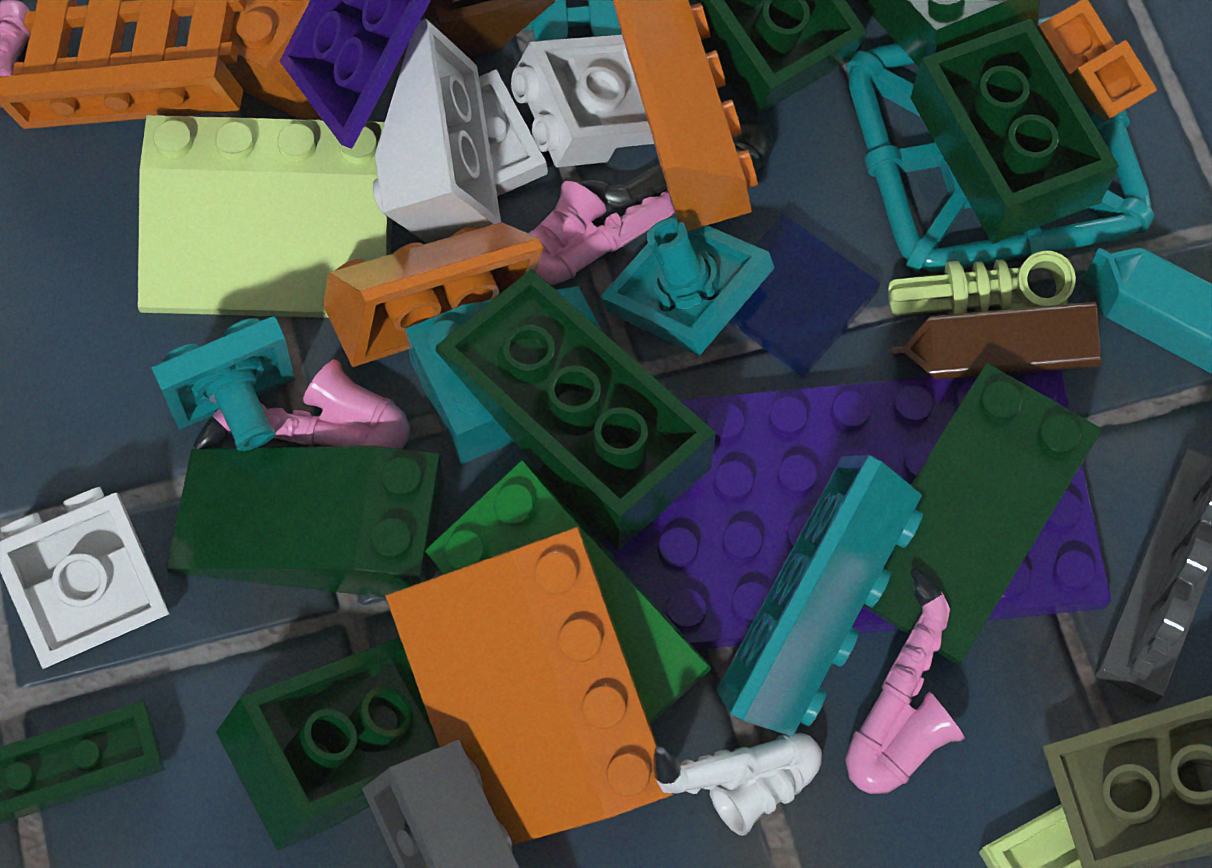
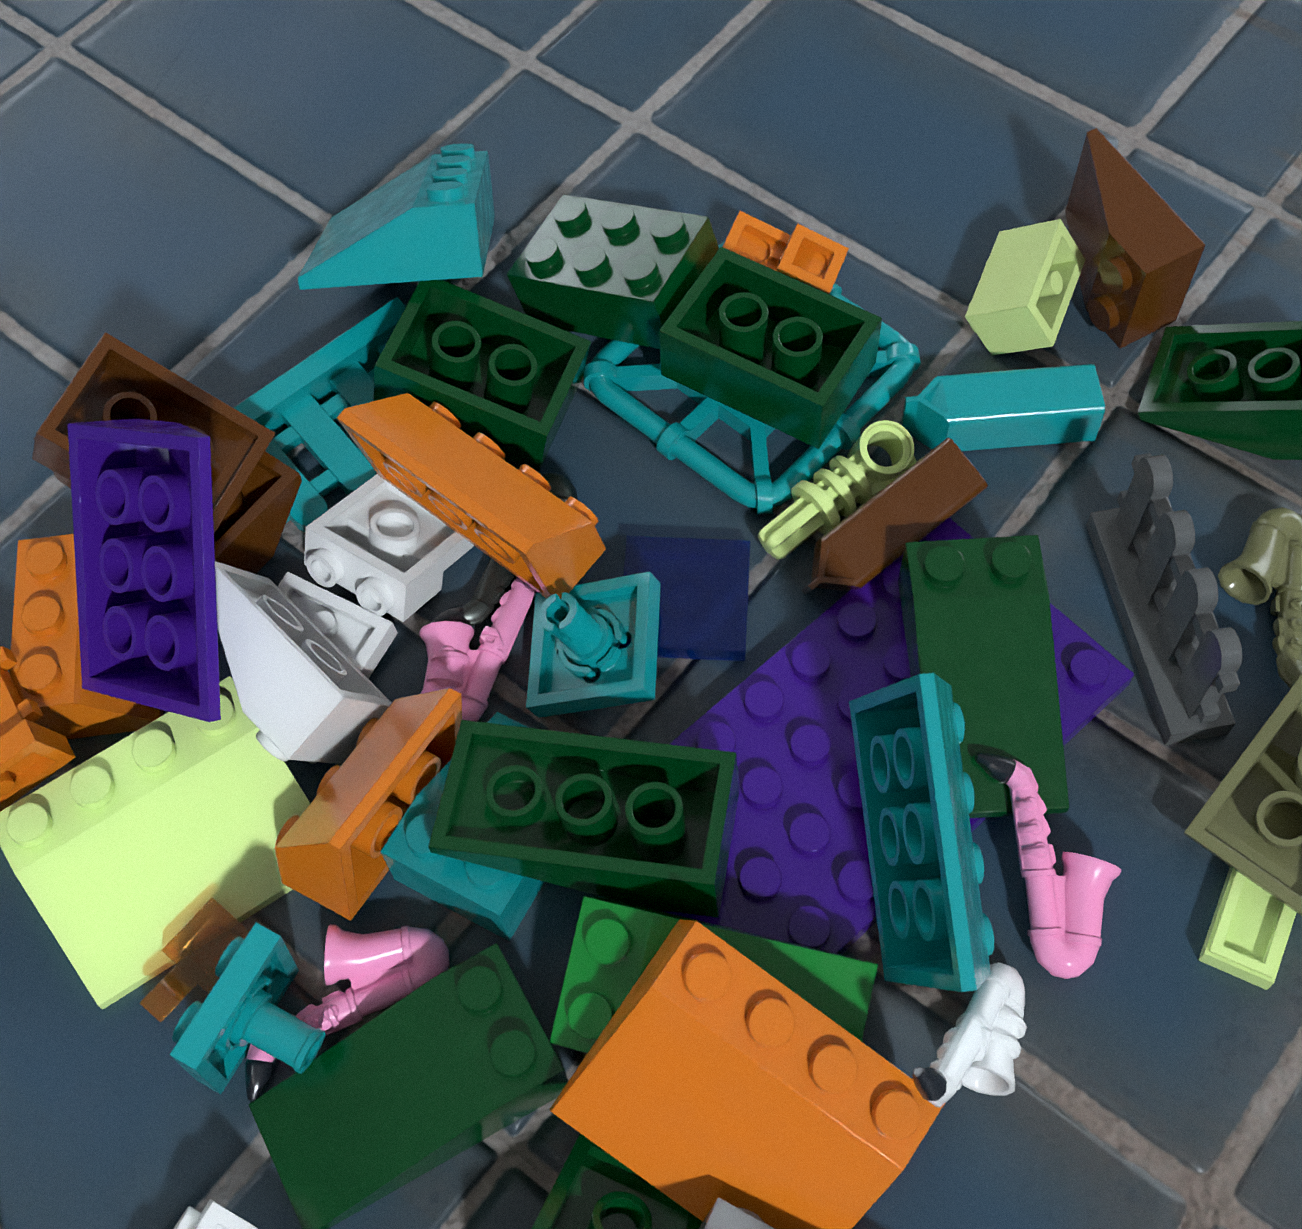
camera: 30 degrees left, 5 degrees down
(224, 310) = (196, 953): none -> clear orange plate

